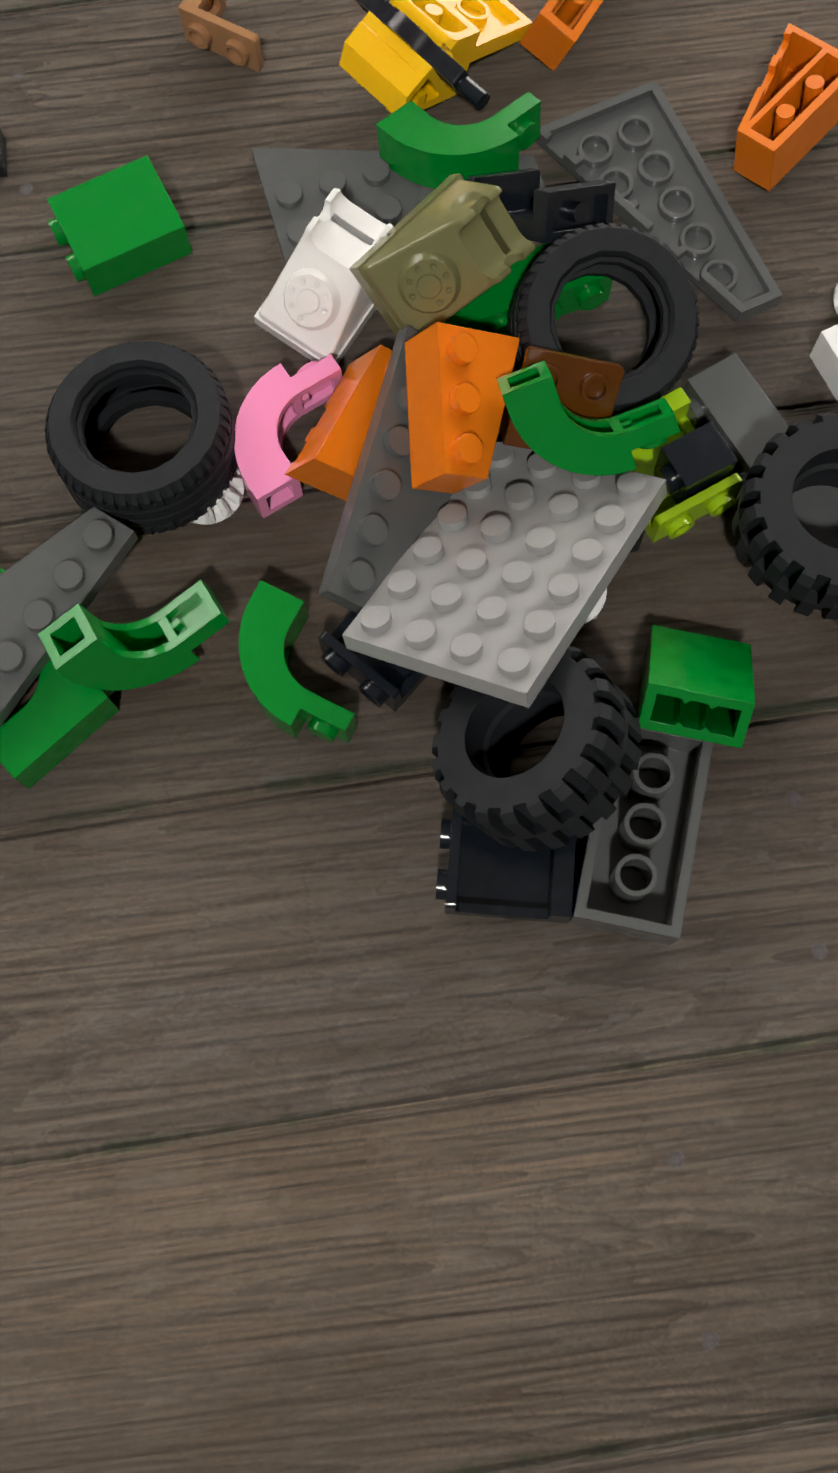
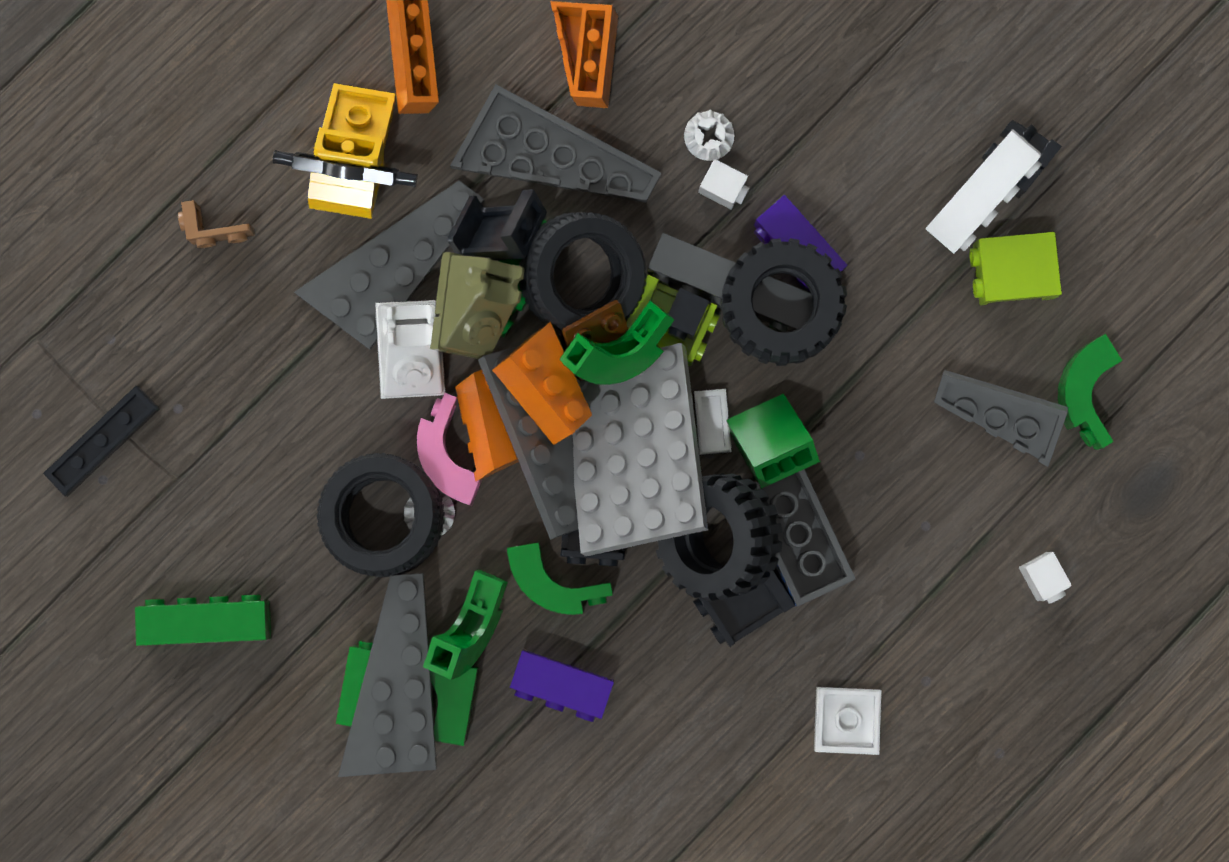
camera: 45 degrees left, 10 degrees up
(118, 226) = (258, 398): green brick -> none
(195, 801) = (561, 685): none -> dark purple brick
(433, 150) = (425, 221): green arch -> none
(531, 1130) = (847, 720): none -> white tile
(629, 623) = (711, 421): none -> white tile

